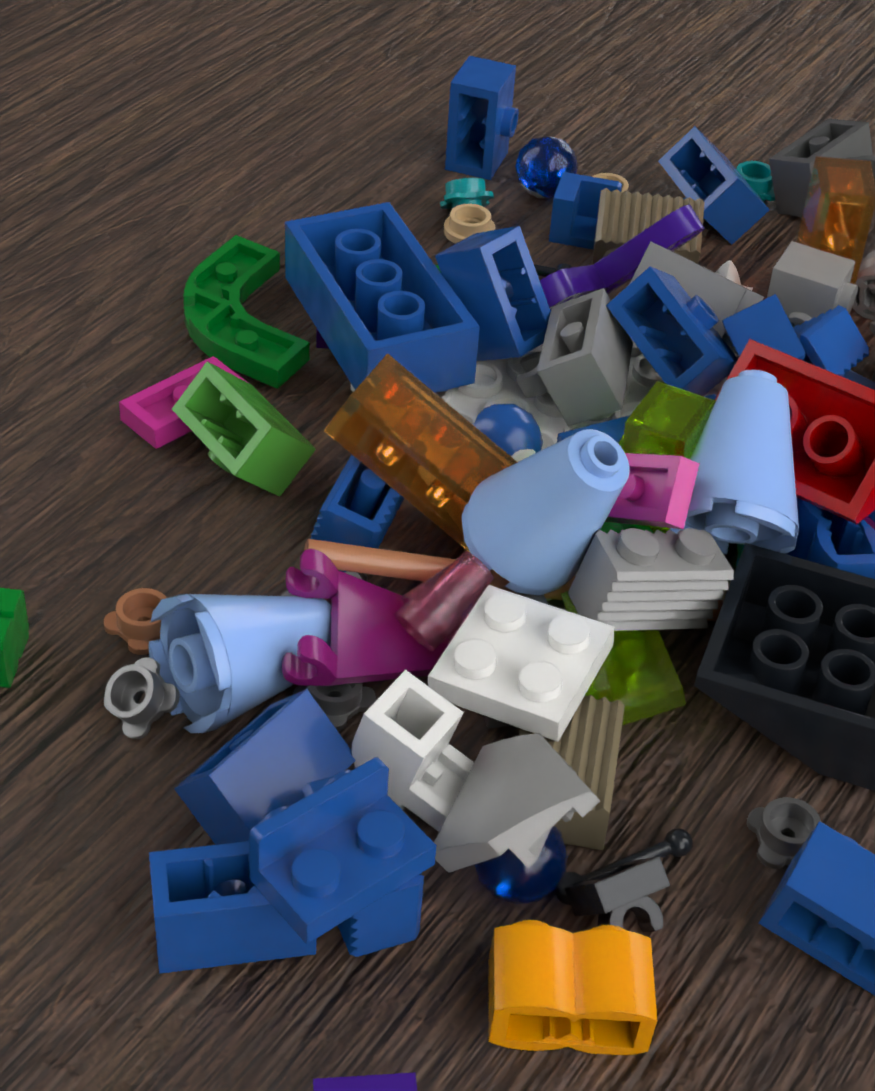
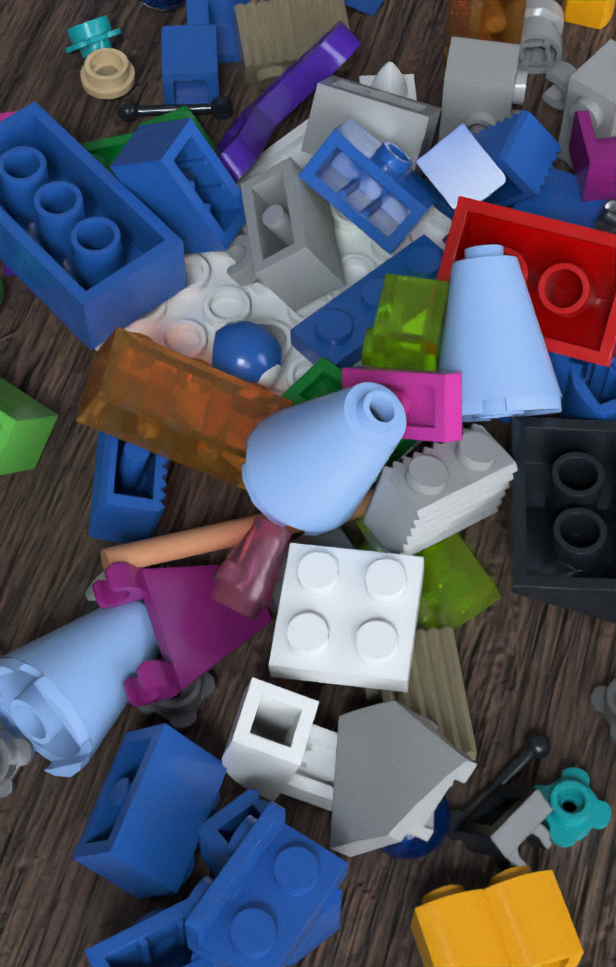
camera: 15 degrees left, 15 degrees up
(549, 229) = (189, 64): none -> blue panel
(699, 918) = (590, 812): none -> teal plate

